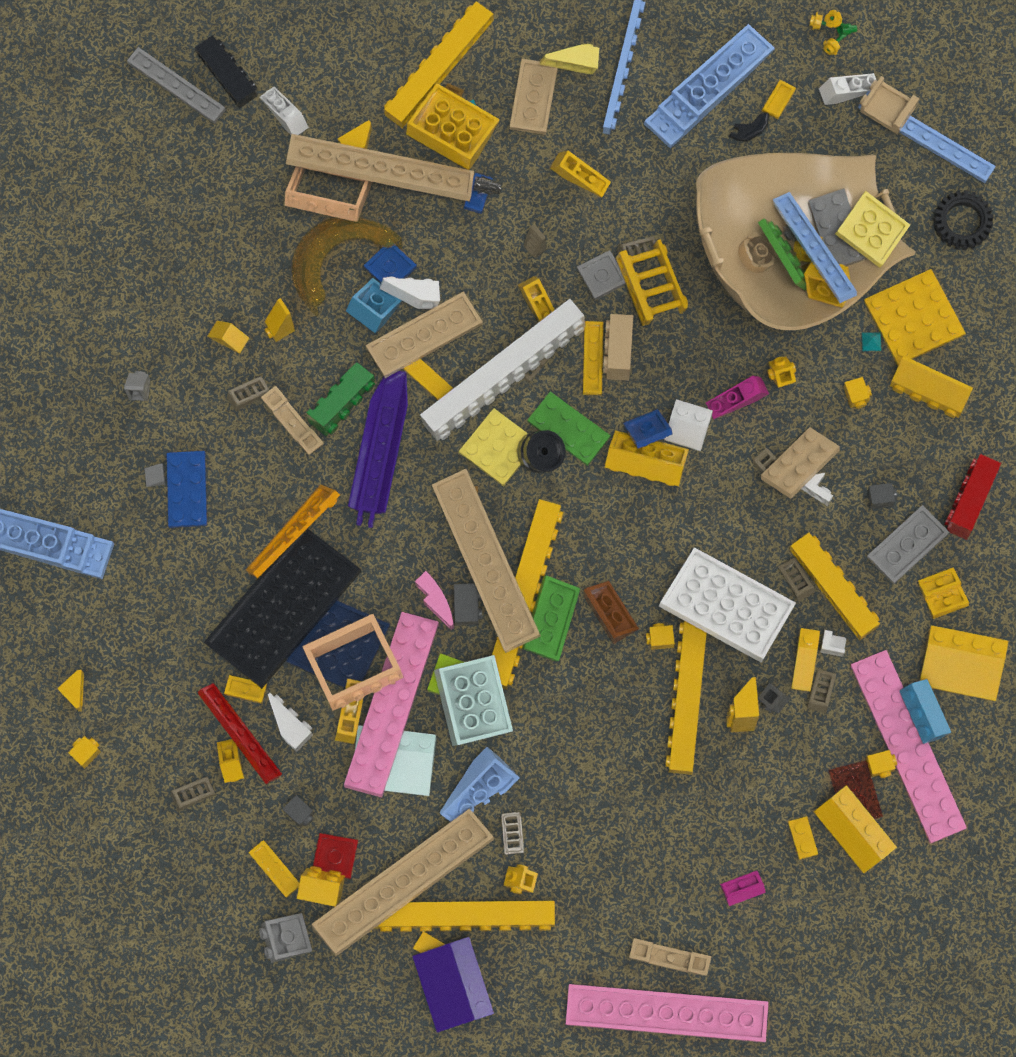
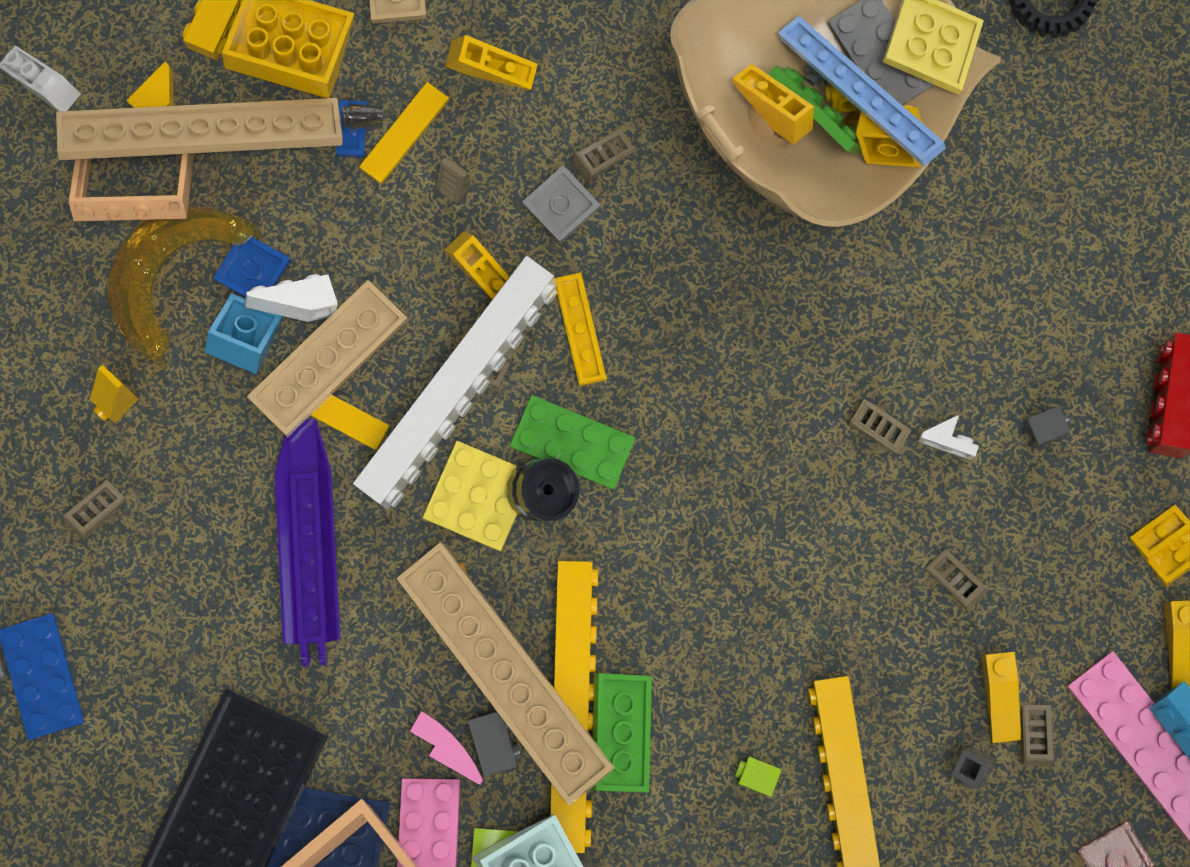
camera: 15 degrees left, 5 degrees up
(229, 336) = (44, 432): yellow slope -> none
(291, 420) = (168, 535): tan slope -> none
(313, 507) = (222, 679): light orange wing -> none
(341, 399) = (232, 485): green wedge -> none
(511, 204) = (404, 133): none -> yellow tile
(610, 611) = (704, 698): dark orange slope -> none
(618, 347) = (613, 305): tan brick -> none
(632, 668) = (758, 776): none -> lime brick
(640, 295) = (624, 222): yellow fence -> none
(648, 428) = (687, 415): blue plate -> none
(655, 461) = (697, 458): yellow slope -> none
(660, 636) = (786, 717): yellow brick -> none
(689, 425) = (743, 394): white slope -> none
(727, 604) = (871, 647): white plate -> none
(738, 396) = (802, 334): dark pink slope -> none
(744, 710) = (940, 799): yellow slope -> none
(758, 244) = (775, 103): none -> yellow slope
(781, 371) = (856, 281): yellow brick -> none
(800, 462) = (919, 409): tan plate -> none
(833, 644) = (1034, 662): white panel -> none
(834, 586) = (1015, 577): yellow brick -> none
(857, 393) = (971, 284): yellow brick -> none
(871, 341) = (970, 203): teal slope -> none
(881, 764) = (1152, 822): yellow brick -> none
(908, 544) = (1102, 488): light grey plate -> none
(914, 316) = (1021, 152): yellow plate -> none
(930, 387) = (1075, 250): yellow slope -> none

